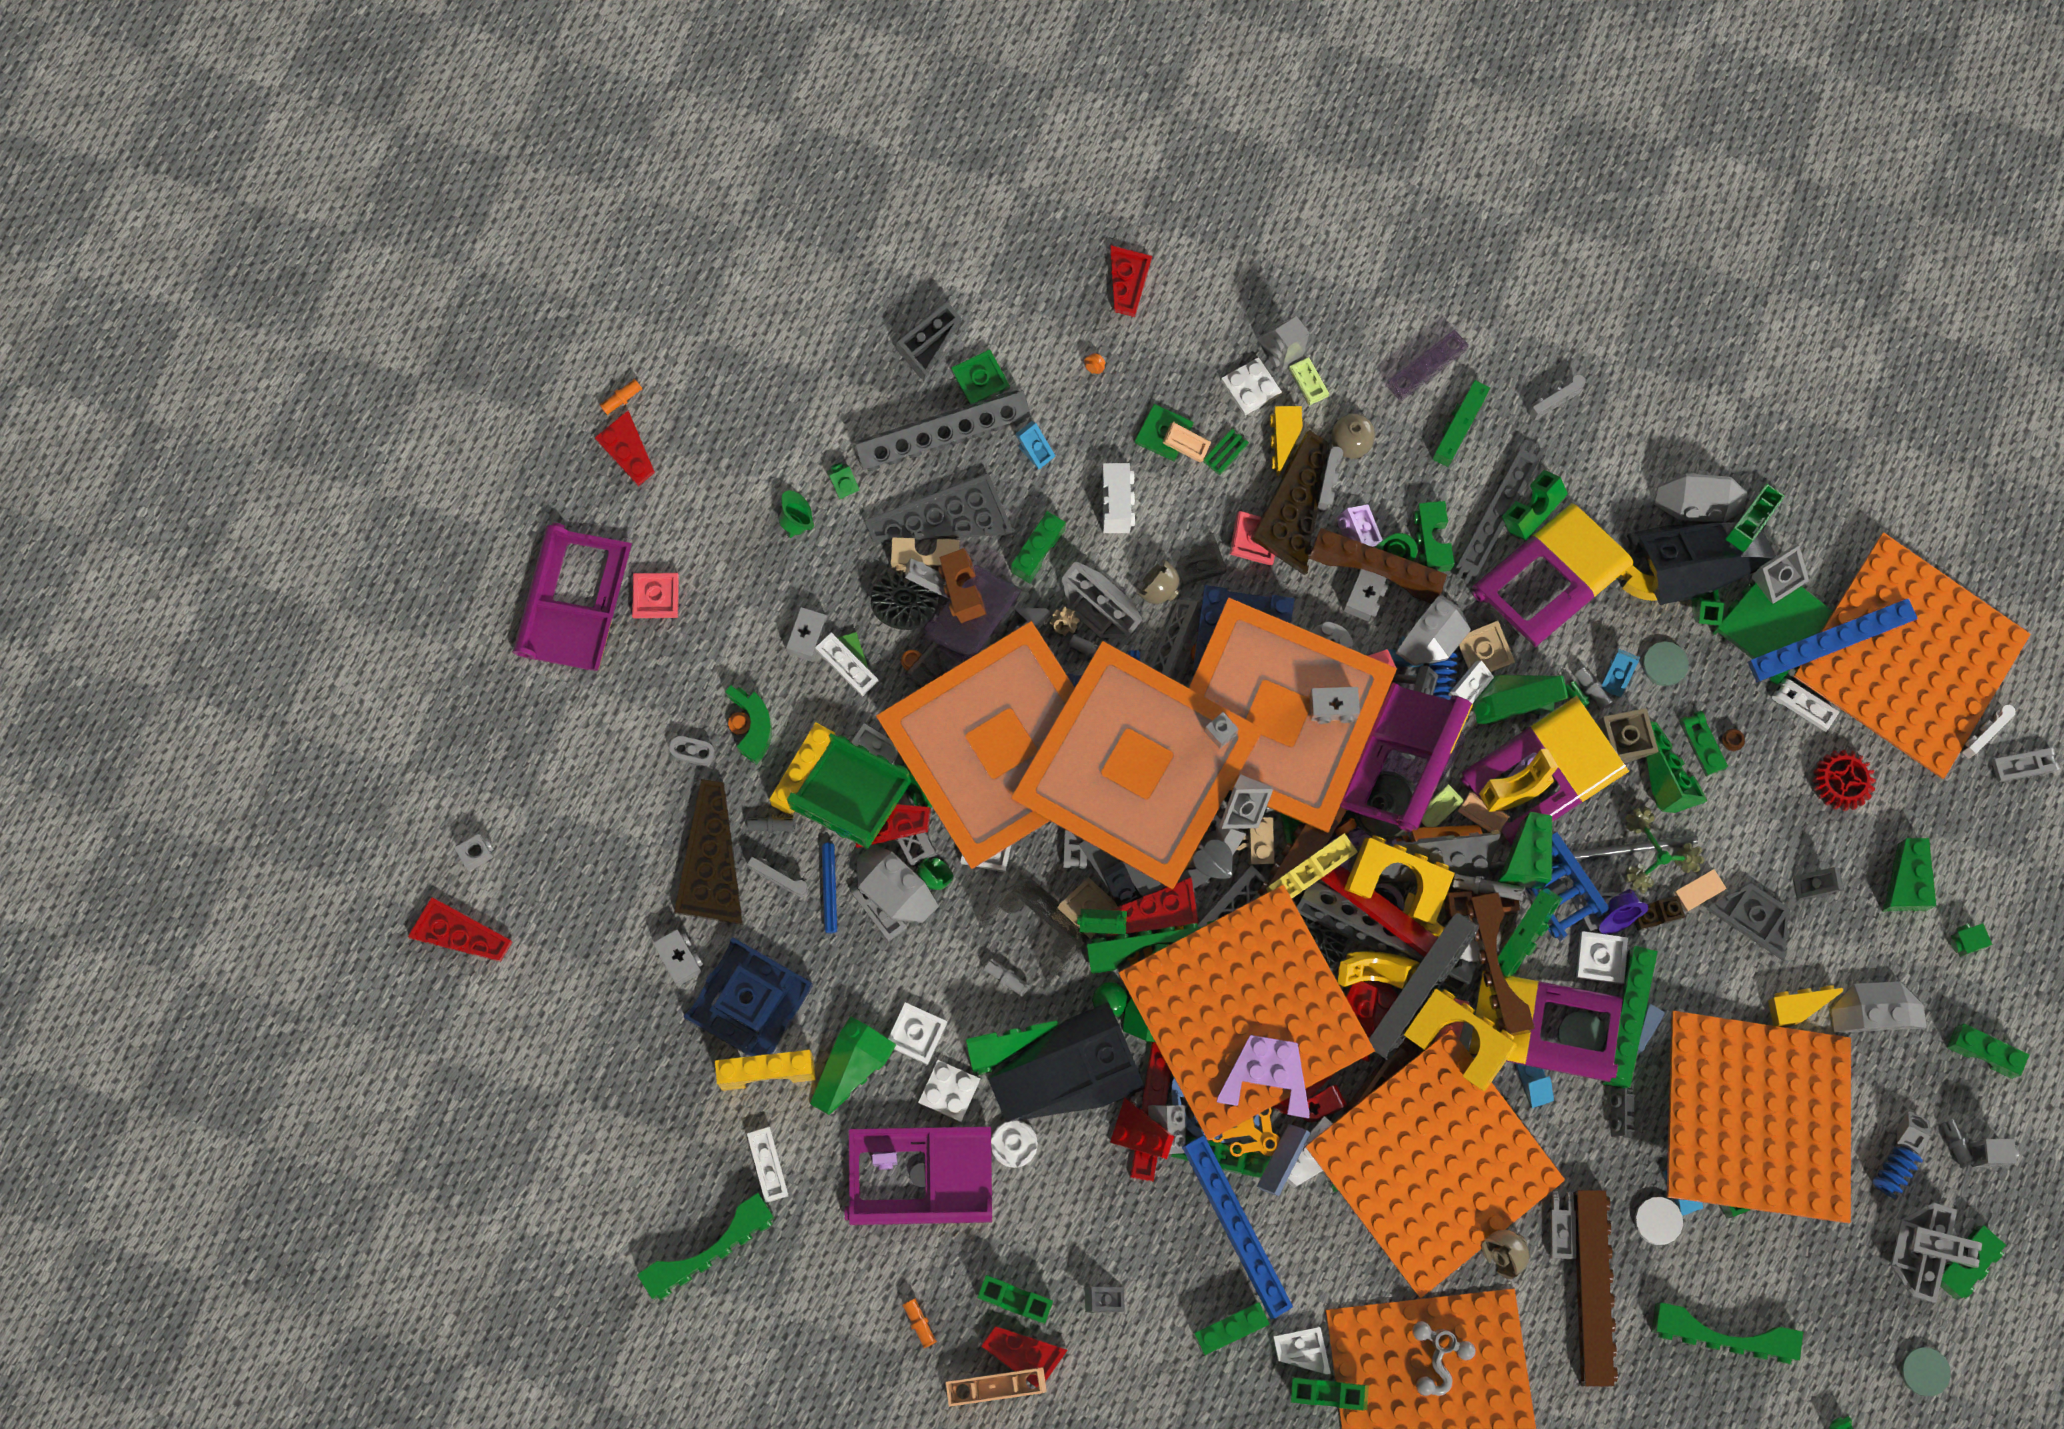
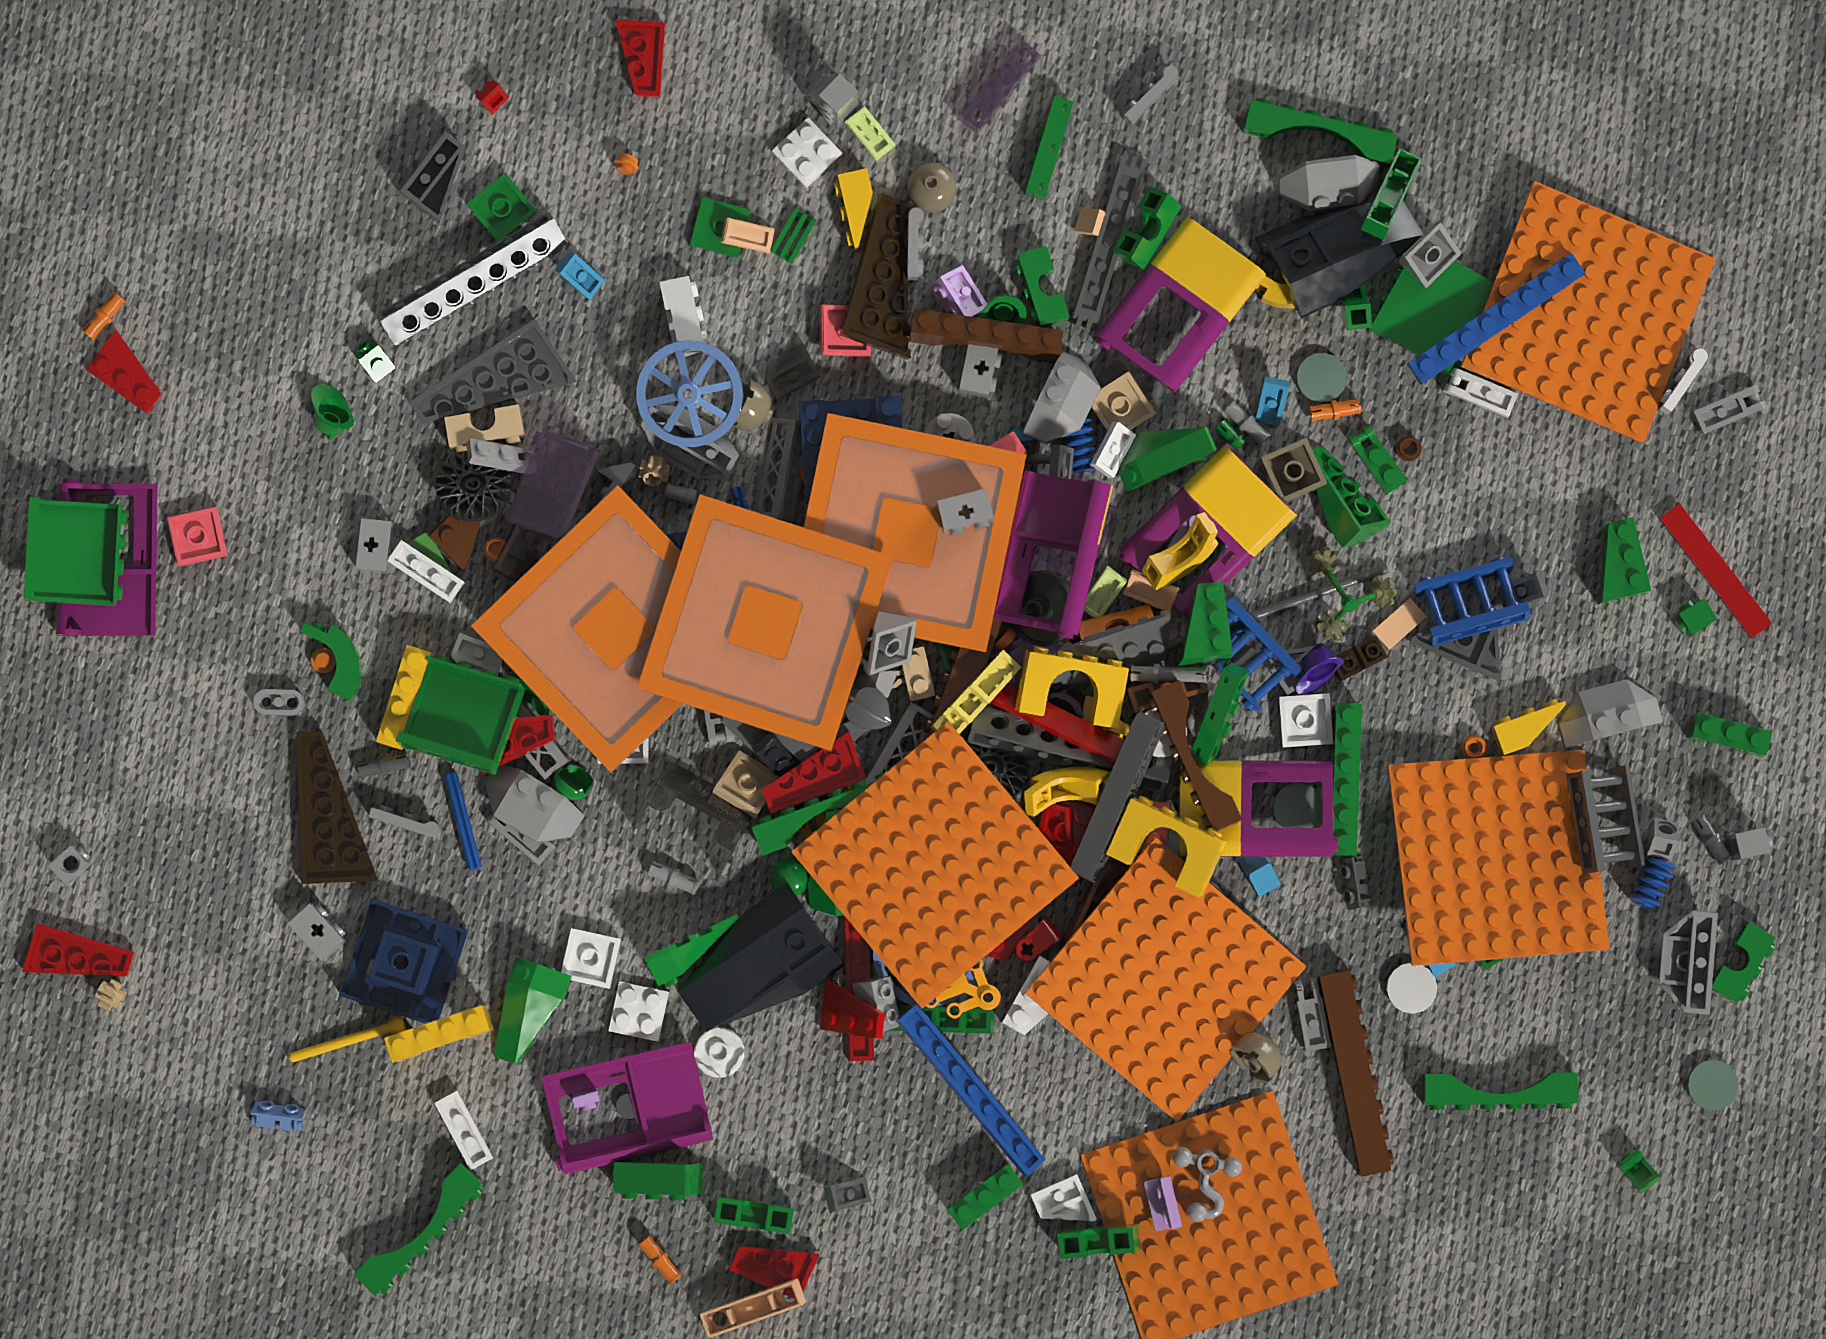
camera: 15 degrees left, 10 degrees up
(481, 974) = (110, 995): none -> tan gear
(544, 584) = (74, 552): none -> green panel
(613, 1117) = (266, 1113): none -> medium blue hinge
(729, 1053) = (394, 1025): none -> yellow piece
(879, 643) = (456, 539): none -> reddish brown wing
(933, 1247) = (657, 1180): none -> green wedge
(956, 570) = (522, 443): dark orange arch -> none
(992, 286) = (492, 96): none -> red tile
(1037, 546) = (607, 392): green arch -> none
(1102, 921) = (763, 799): green hinge -> none
(1115, 561) = (697, 392): none -> medium blue wheel
(1221, 730) = (848, 569): light grey brick -> none
(1269, 1064) = (970, 916): lavender wing -> none
(1283, 1160) = (1005, 1011): sand blue tile -> none
(1396, 1371) = (1162, 1203): none -> lavender bracket
(1485, 490) = (1089, 221): none -> light nougat tile
(1651, 1021) = (1368, 777): sand blue slope -> none
(1657, 438) = (1269, 120): none -> green arch
(1673, 693) = (1334, 410): none -> orange pin
(1750, 1007) = (1482, 747): none -> orange plate
(1763, 901) = (1466, 624): none -> blue fence
(1848, 1102) = (1586, 822): none -> dark grey fence
(1851, 763) = (1523, 468): red gear -> none
(1945, 1246) = (1709, 955): light grey plate -> none
(1993, 903) = (1715, 571): none -> red tile

